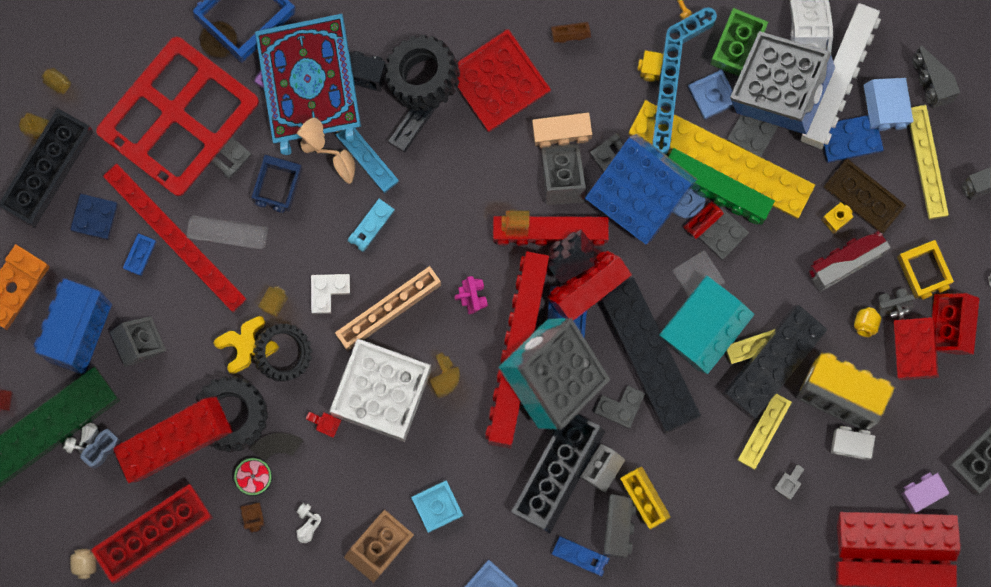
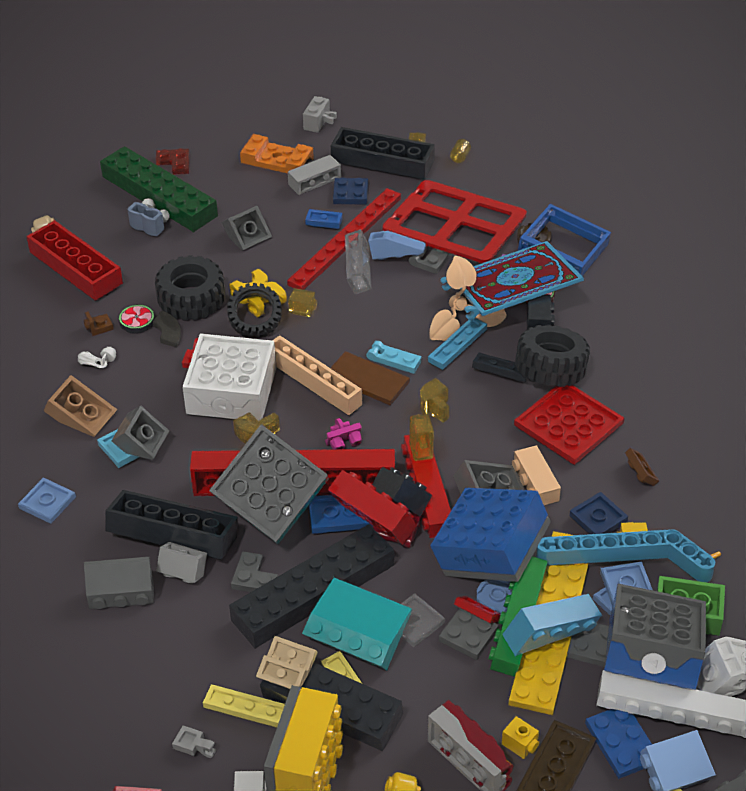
camera: 80 degrees right, 35 degrees down
(59, 251) = (314, 174): none -> light grey brick
(73, 326) = (245, 173): blue piece -> none
(172, 440) = (157, 246): red brick -> none
(211, 190) = (390, 244): none -> medium blue slope
(282, 165) = (420, 277): dark blue window -> none
(323, 287) = (323, 335): white plate -> none
(394, 257) = (372, 378): none -> reddish brown tile
(439, 488) = (140, 434): none -> dark grey slope
(440, 202) = (434, 398): none -> clear yellow brick
(579, 556) = (90, 552): blue plate -> none
(619, 88) = (598, 515): none -> dark blue plate
(645, 497) = (154, 604): yellow brick -> none
(702, 87) = (627, 574): none -> medium blue tile
(747, 162) = (550, 622): none -> dark azure wedge
(748, 391) = (286, 663): none -> tan slope

